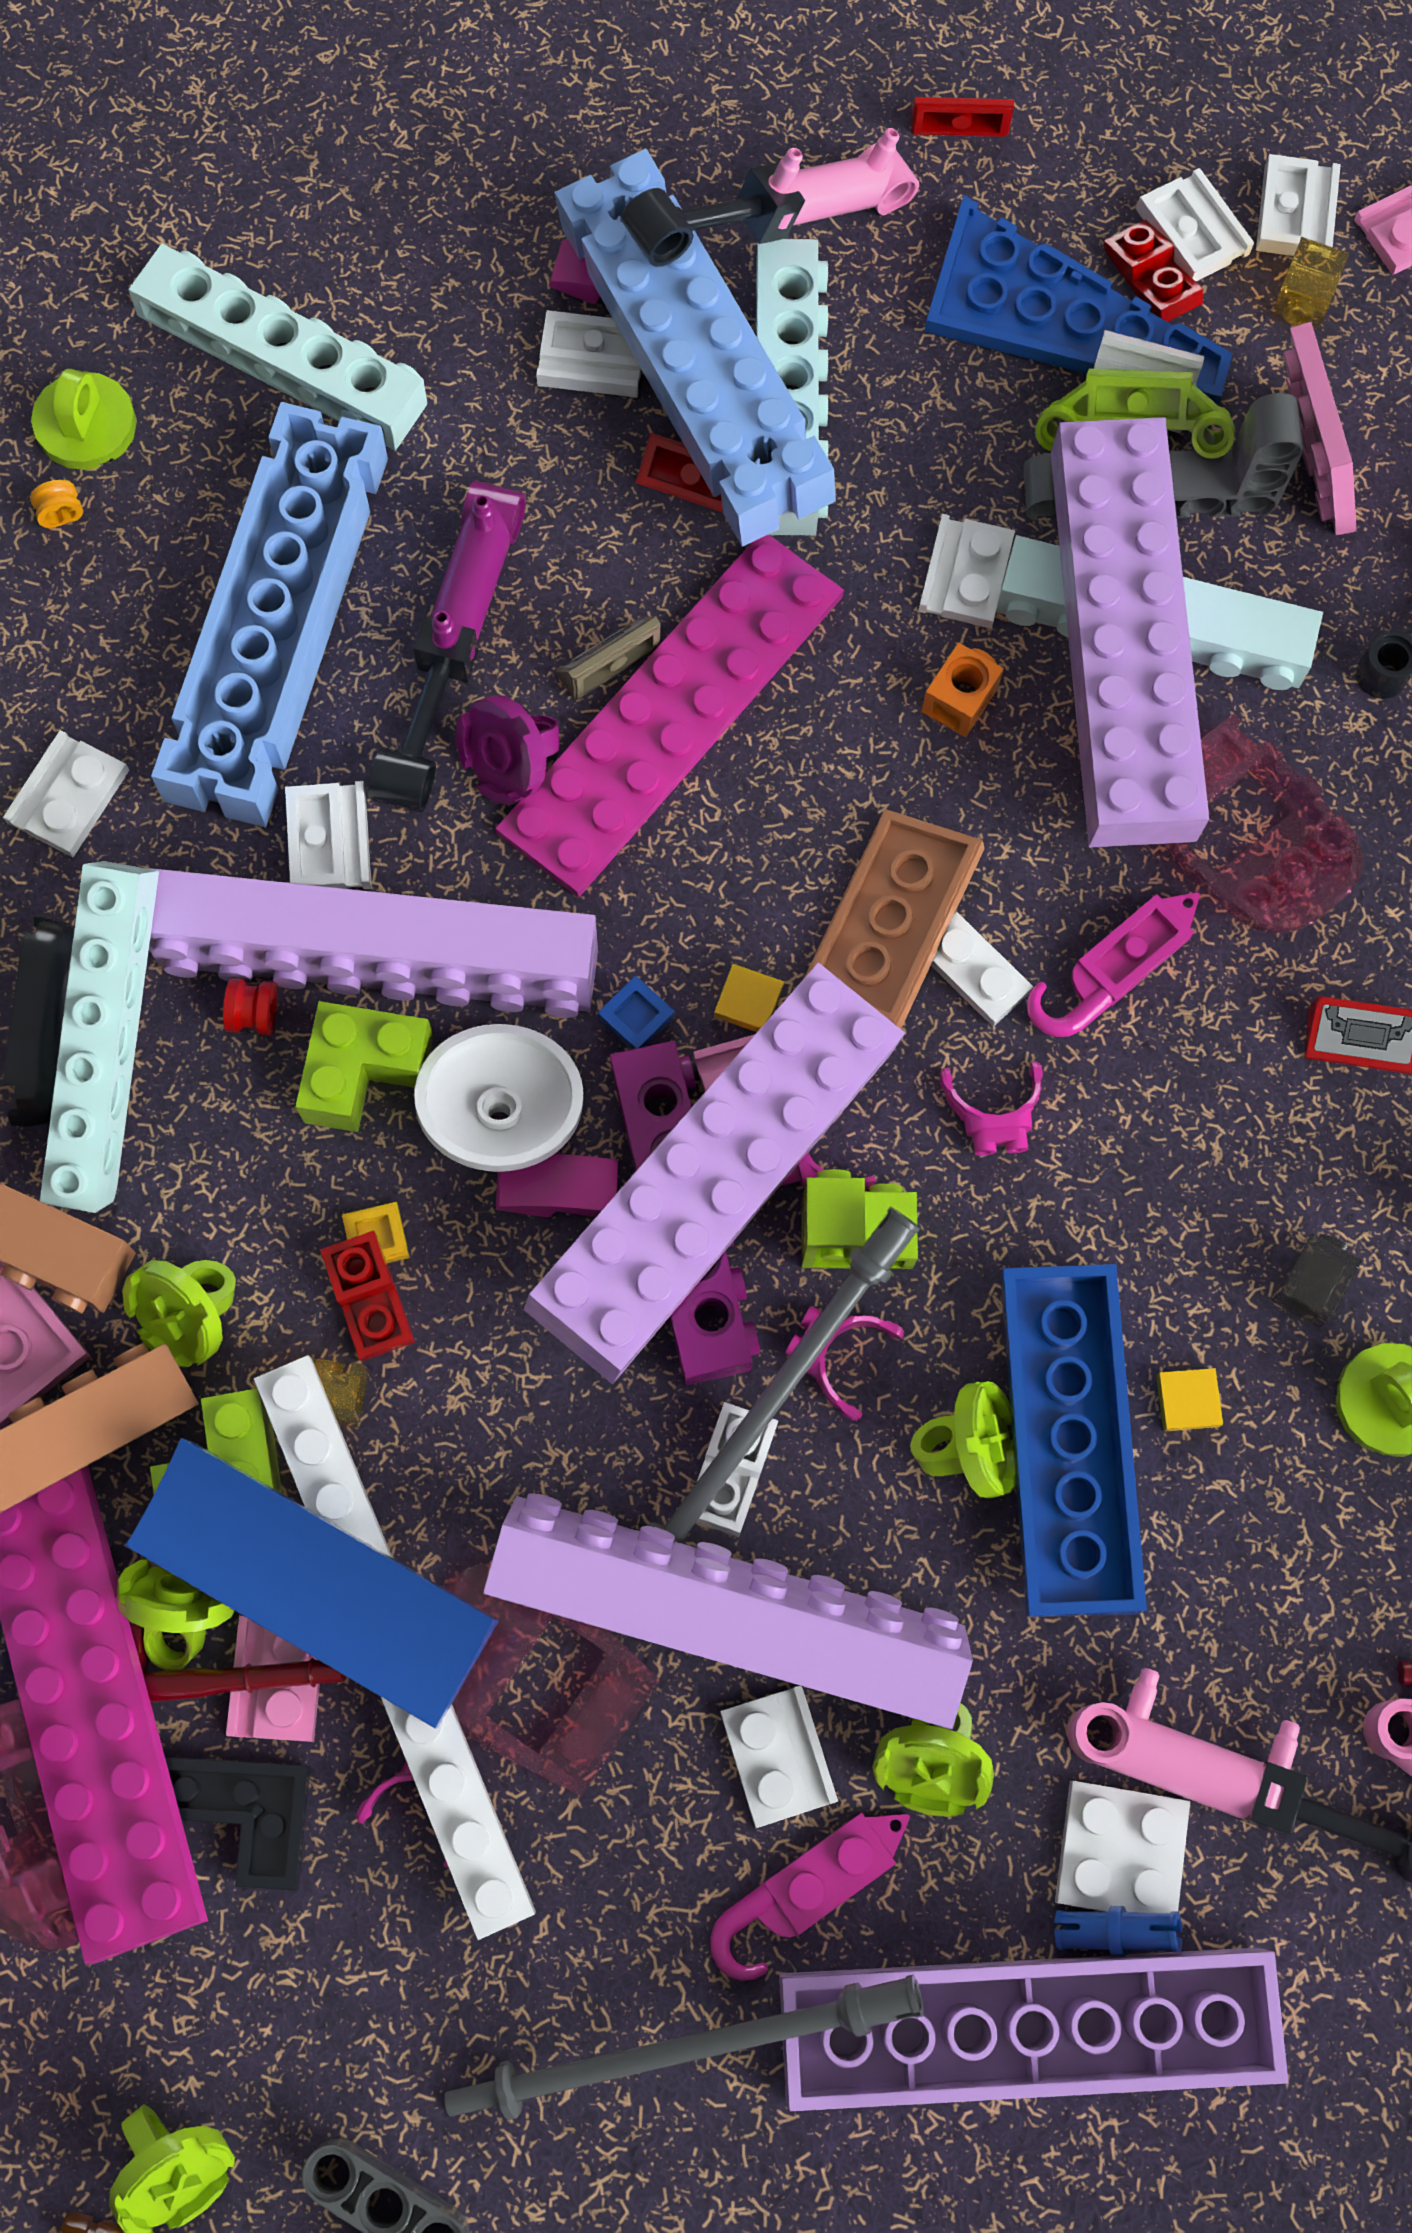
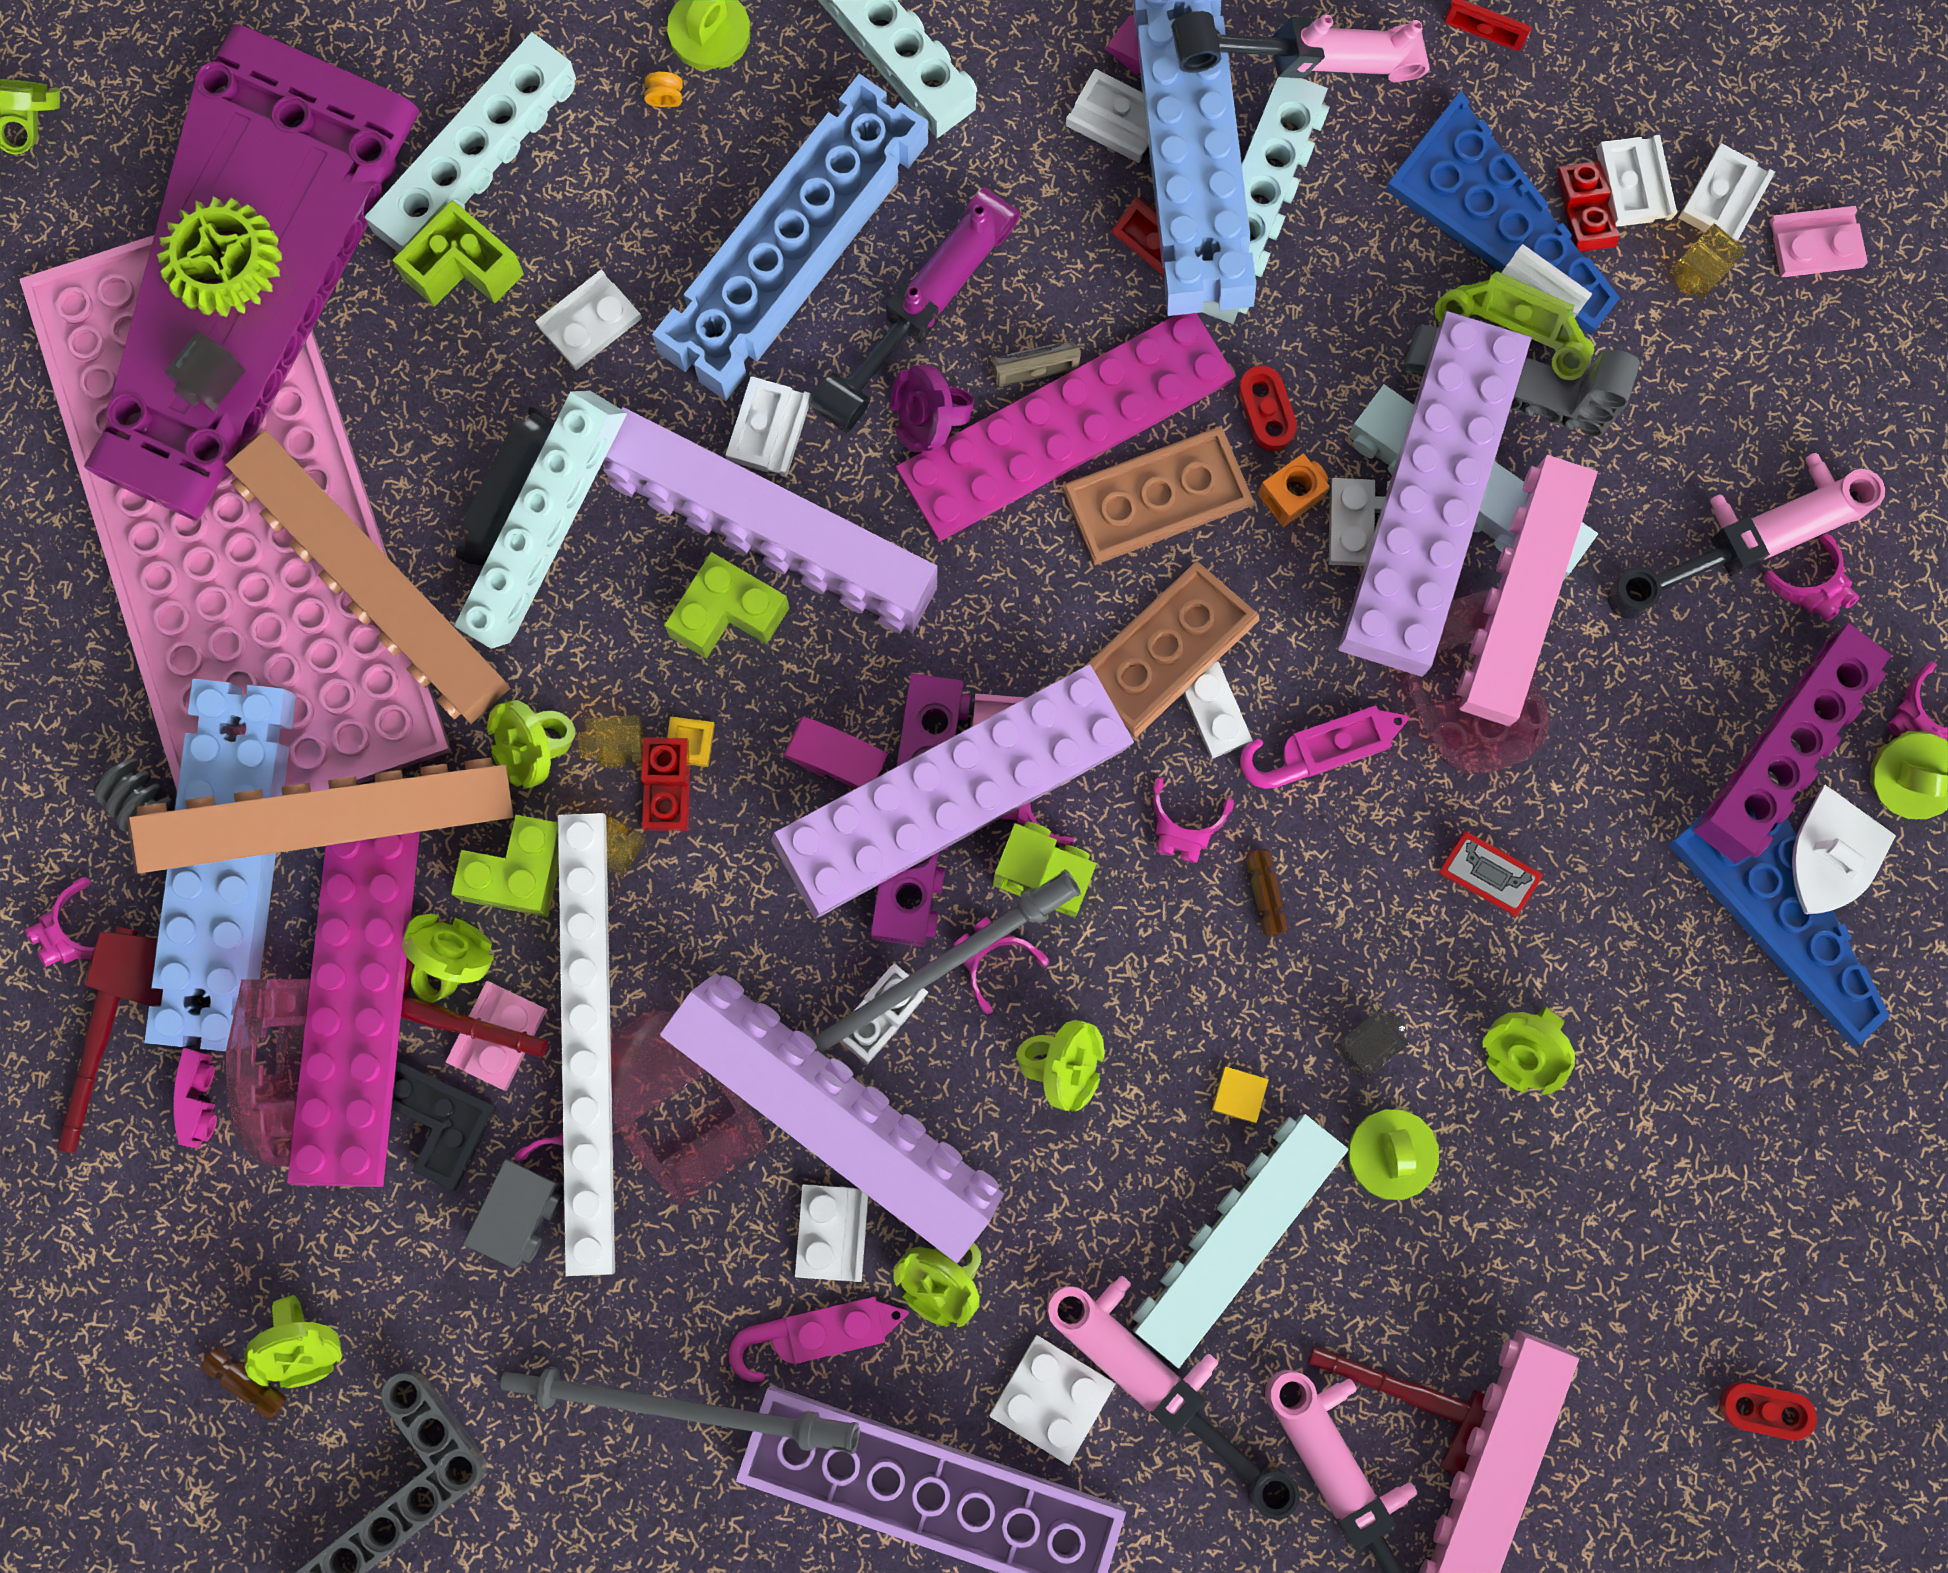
camera: 20 degrees right, 5 degrees up
(250, 1006) = (662, 535): red wheel -> none
(284, 1268) = (612, 740): none -> clear yellow brick
(312, 1583) = (543, 979): blue arch -> none
(383, 1890) = (514, 1214): none -> dark grey brick
(495, 1072) = (821, 652): white dish -> none
(636, 1014) = (945, 649): blue plate -> none
(748, 998) = (1034, 667): yellow tile -> none
(809, 753) = (1157, 495): none -> nougat tile
(899, 611) = (1267, 410): none -> red plate
(966, 571) = (1337, 395): white plate -> none
(1041, 700) = (1352, 520): none -> white plate
(1072, 1441) = (1137, 1090): blue arch -> none
(1118, 1931) = (1023, 1453): blue pin -> none
(1121, 1154) = (1266, 892): none -> reddish brown axle
(1261, 1571) = (1239, 1239): none -> light aqua brick
(1274, 701) = (1527, 590): none -> bright pink brick
(1323, 437) = (1655, 388): bright pink plate -> none

